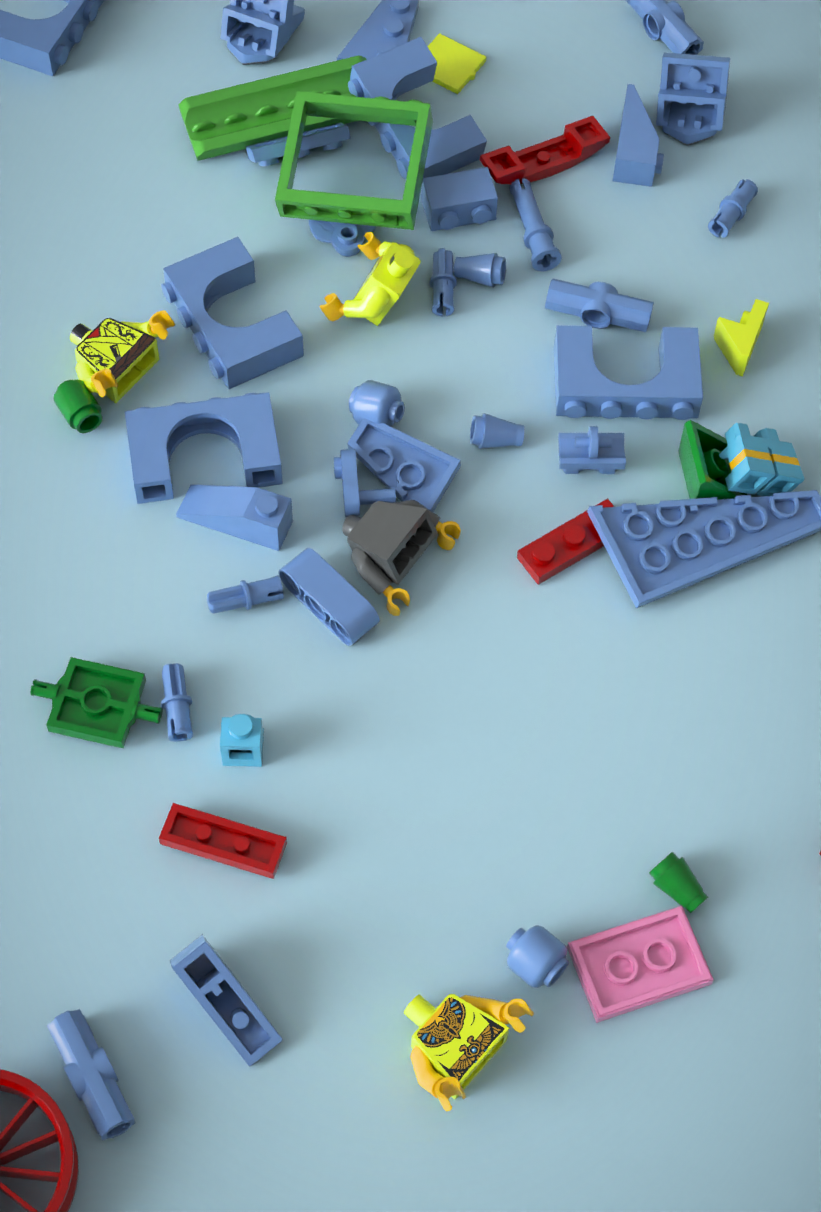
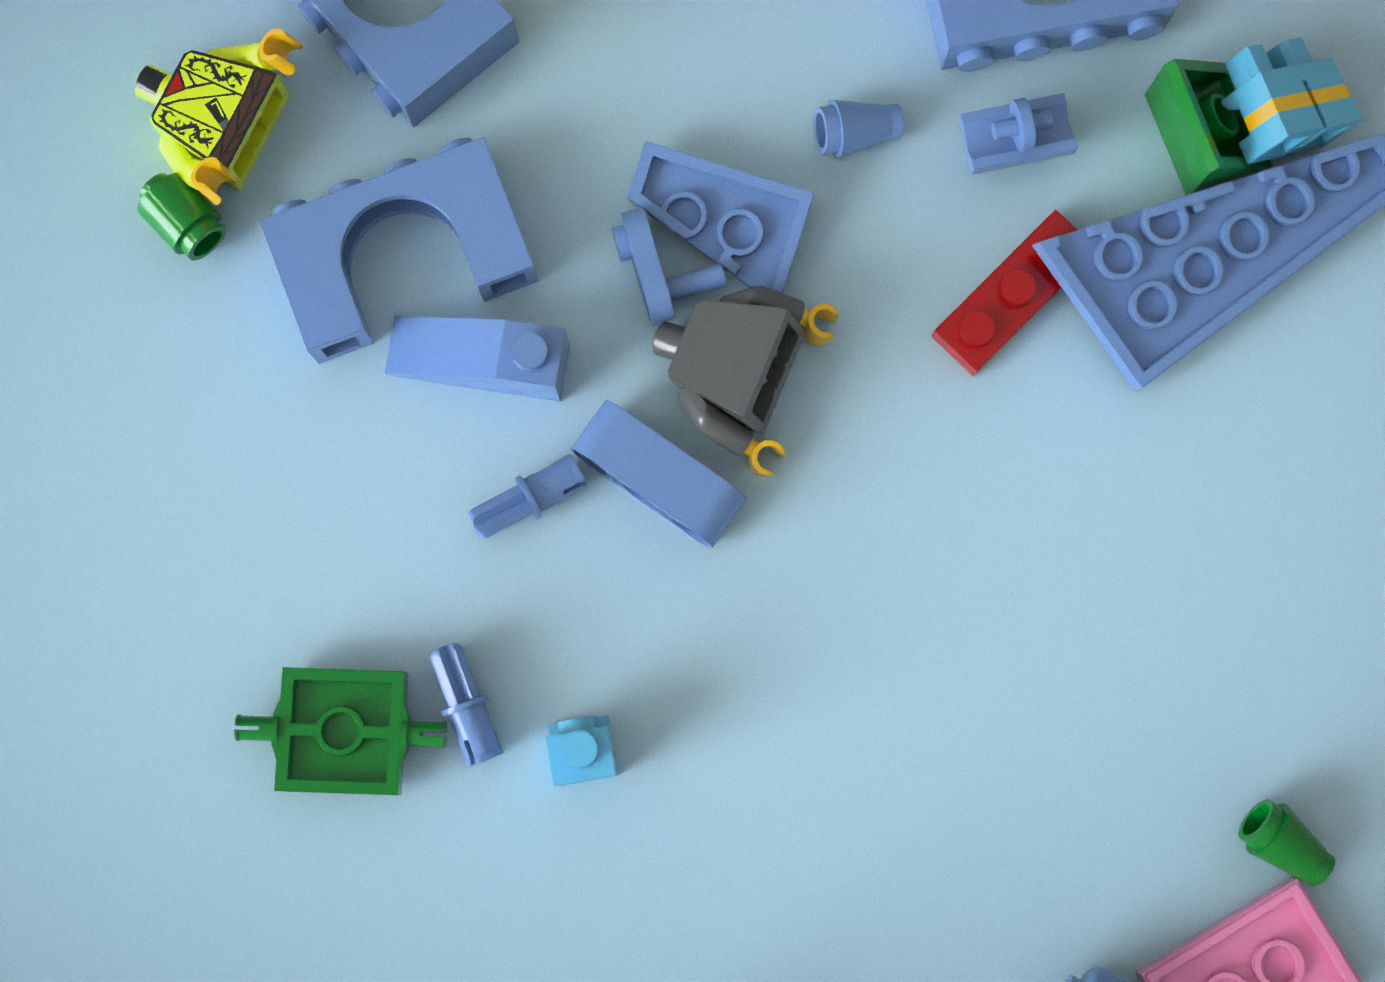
camera: 10 degrees left, 20 degrees up
(223, 840) = (590, 921): red plate -> none
(376, 403) = (658, 116): medium blue head -> none

